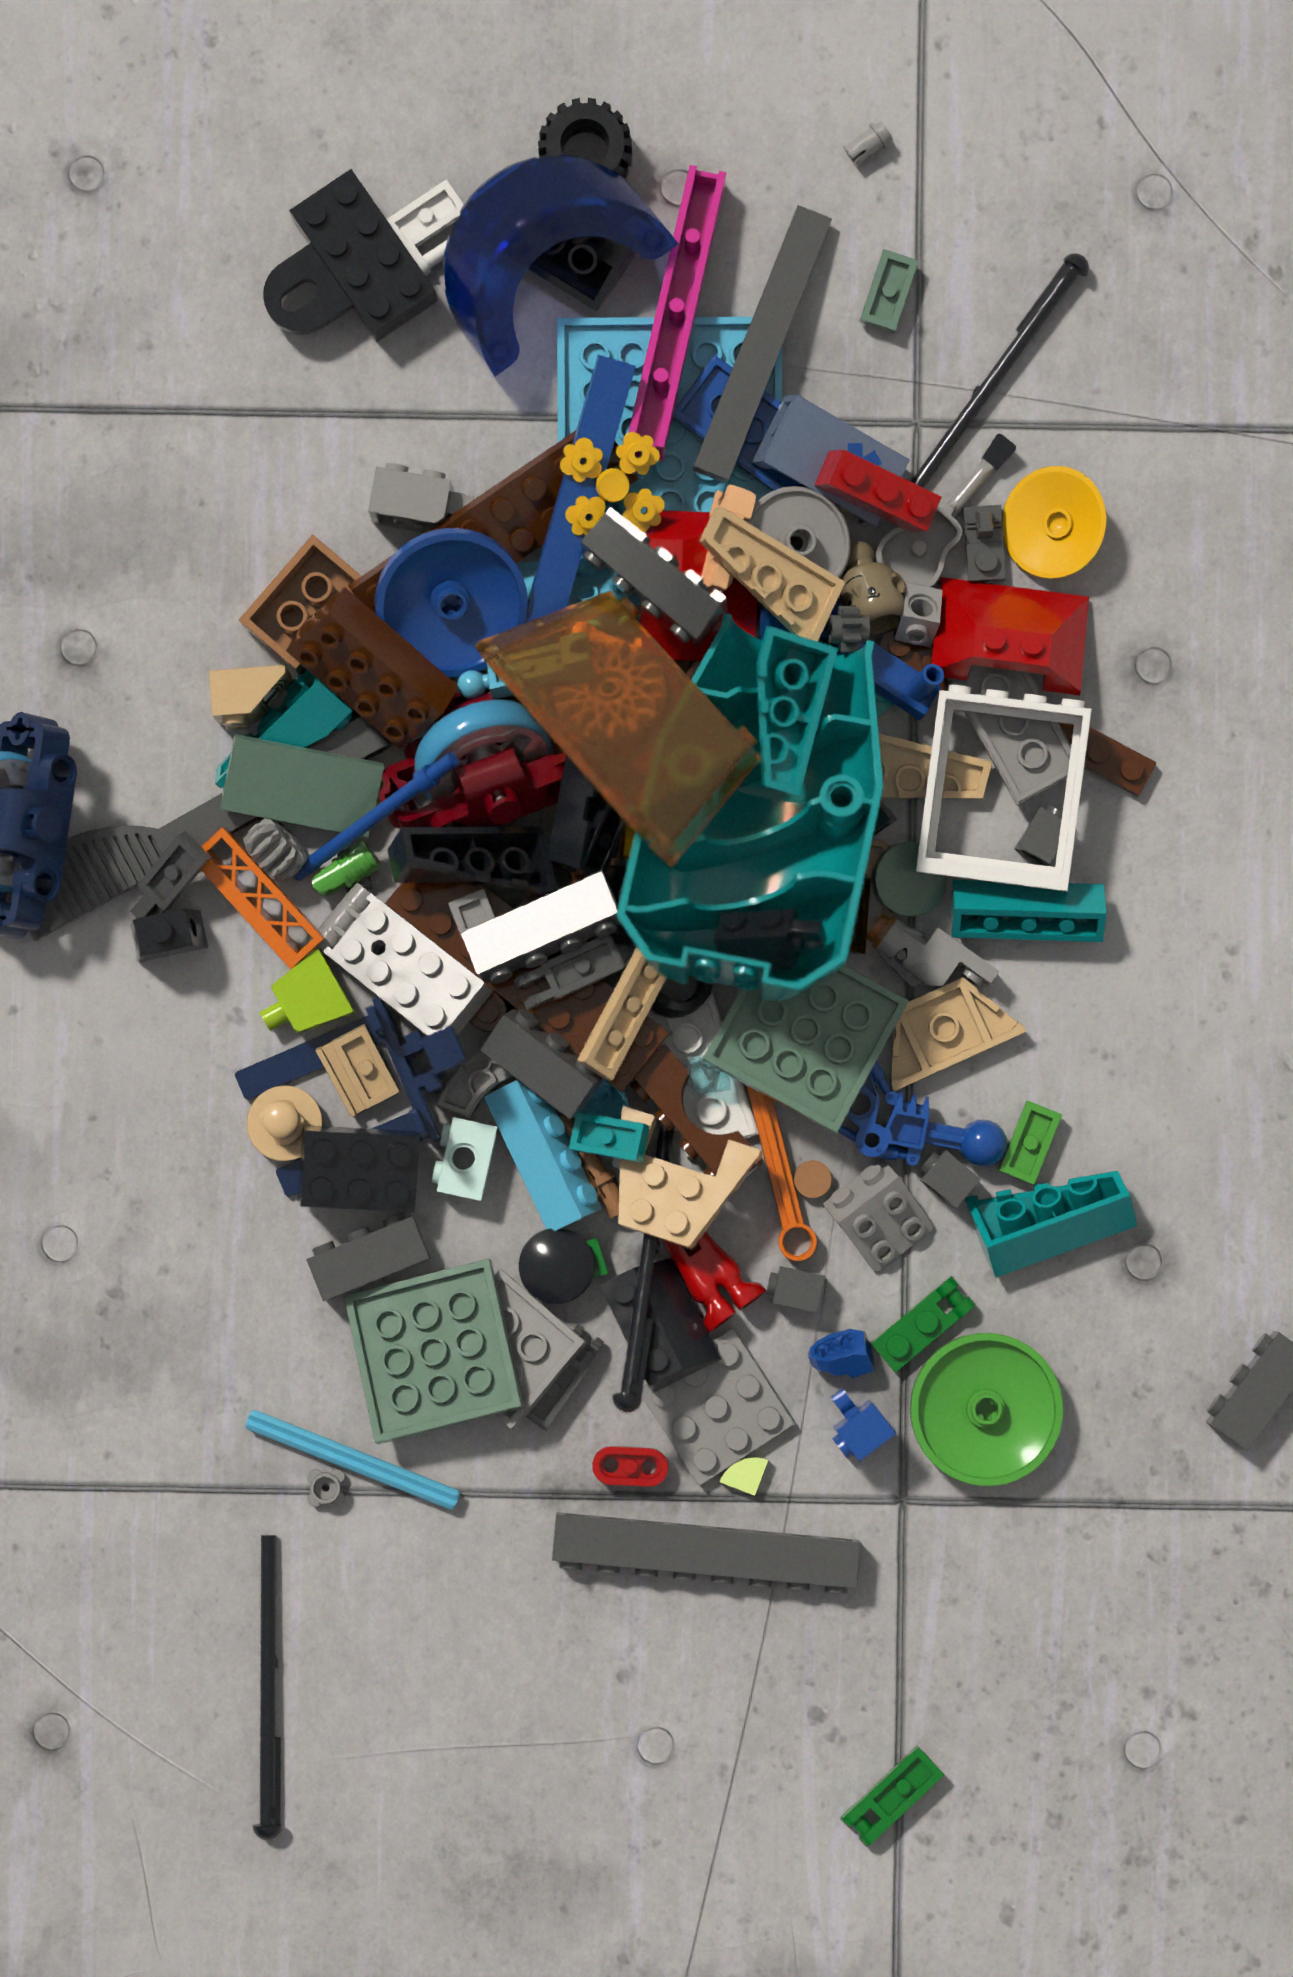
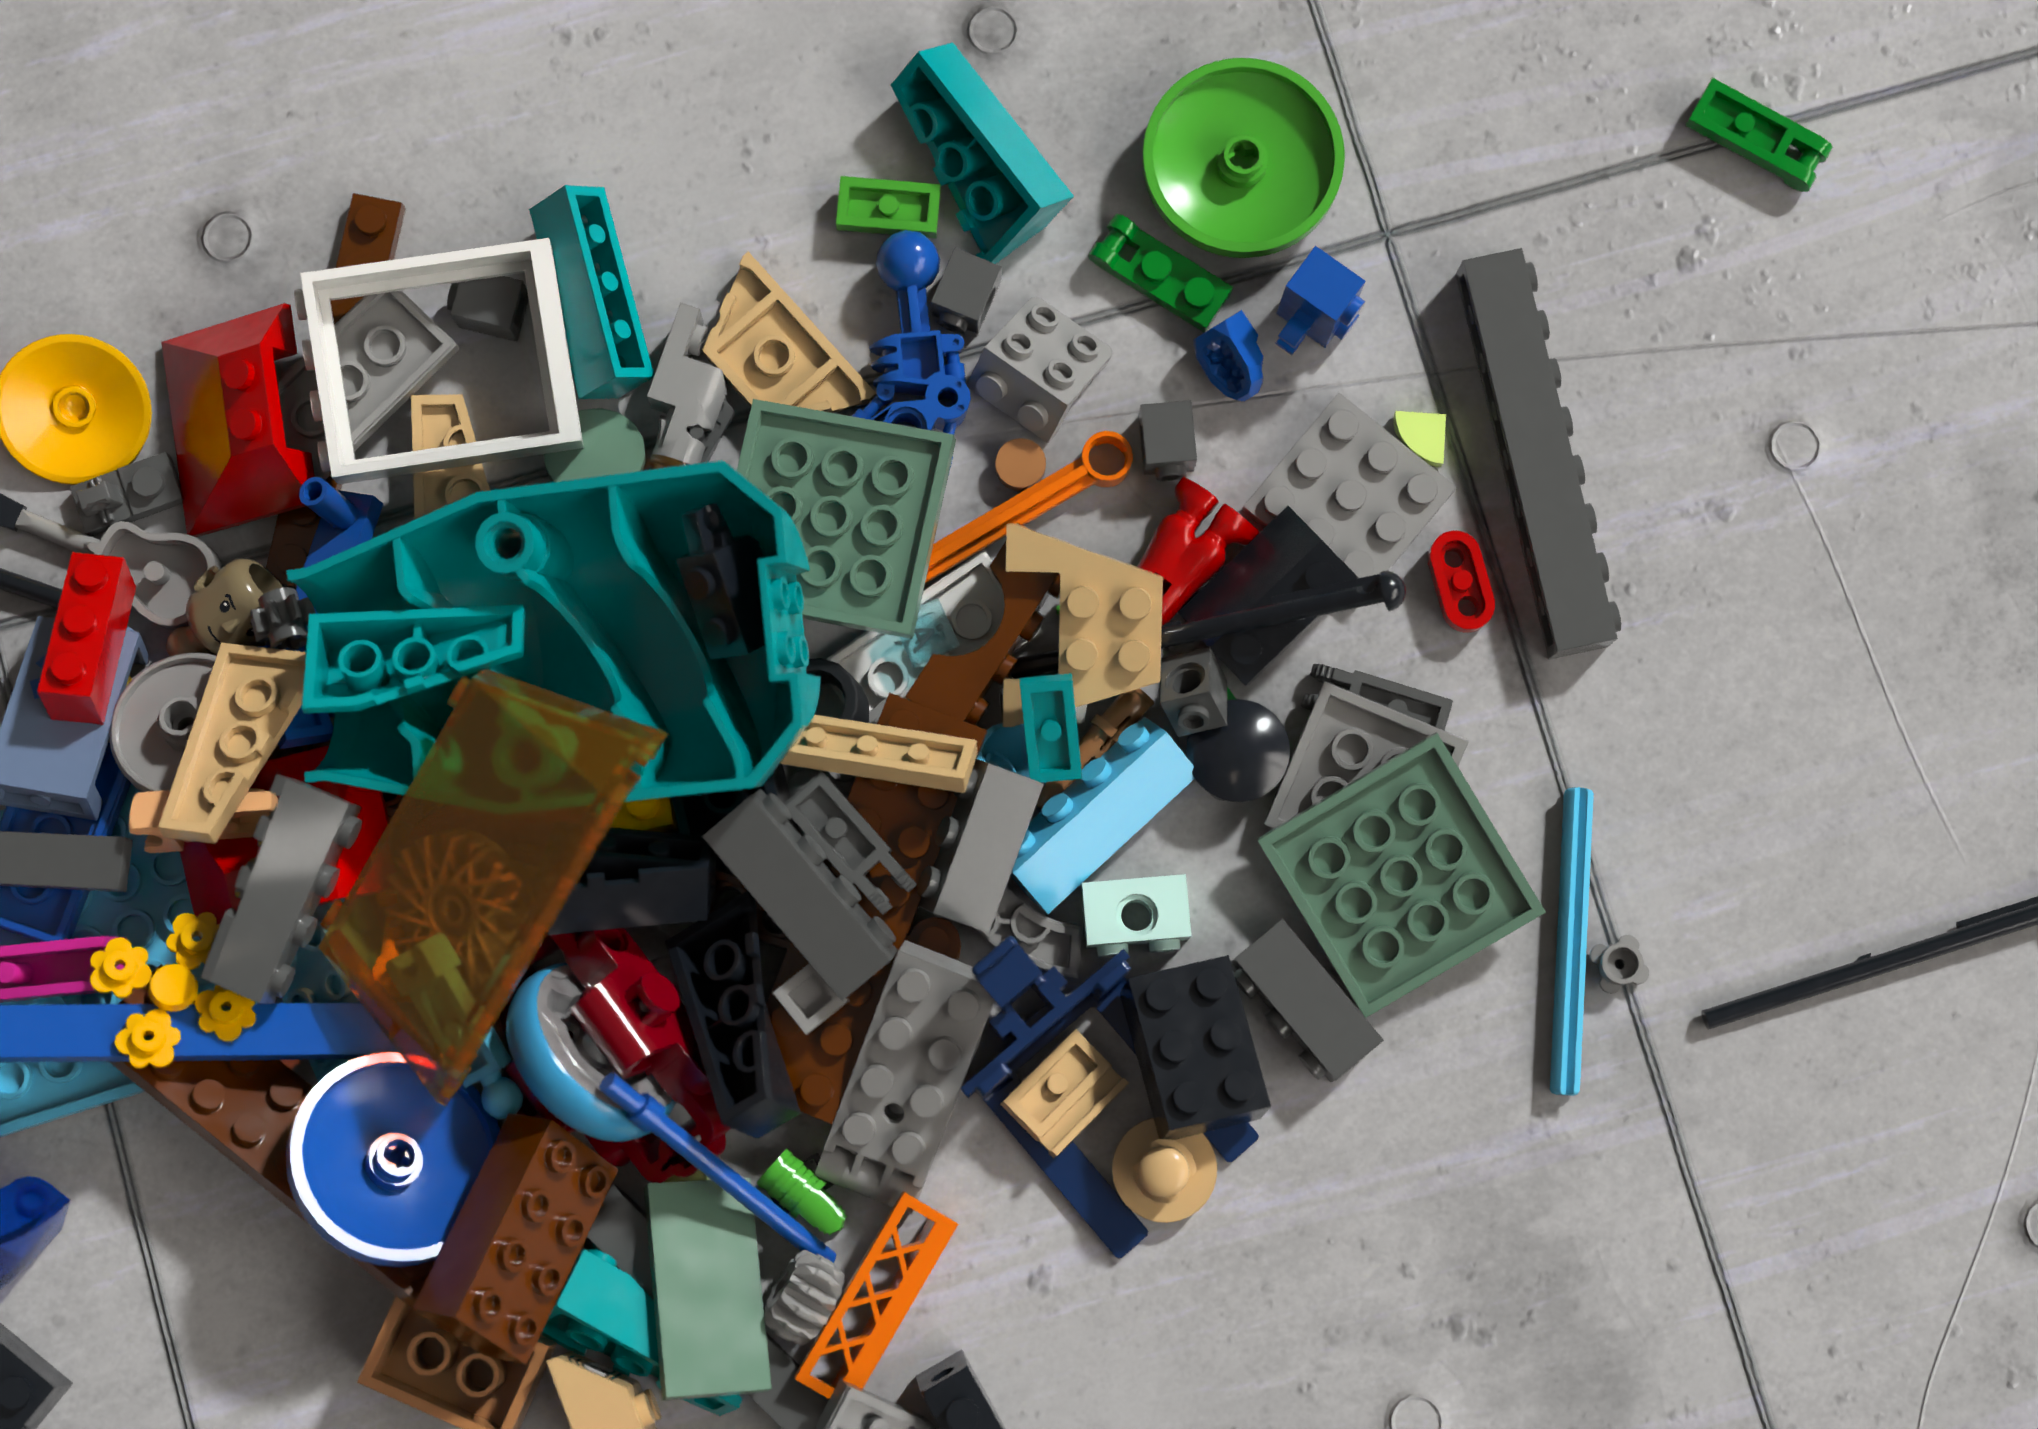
camera: 110 degrees left, 5 degrees down
(307, 996) = (987, 1191): lime torso -> none
(412, 499) = (271, 1259): light grey hinge -> none
(606, 1247) = (1193, 691): none -> dark grey brick
(920, 615) = (244, 537): light grey brick -> none

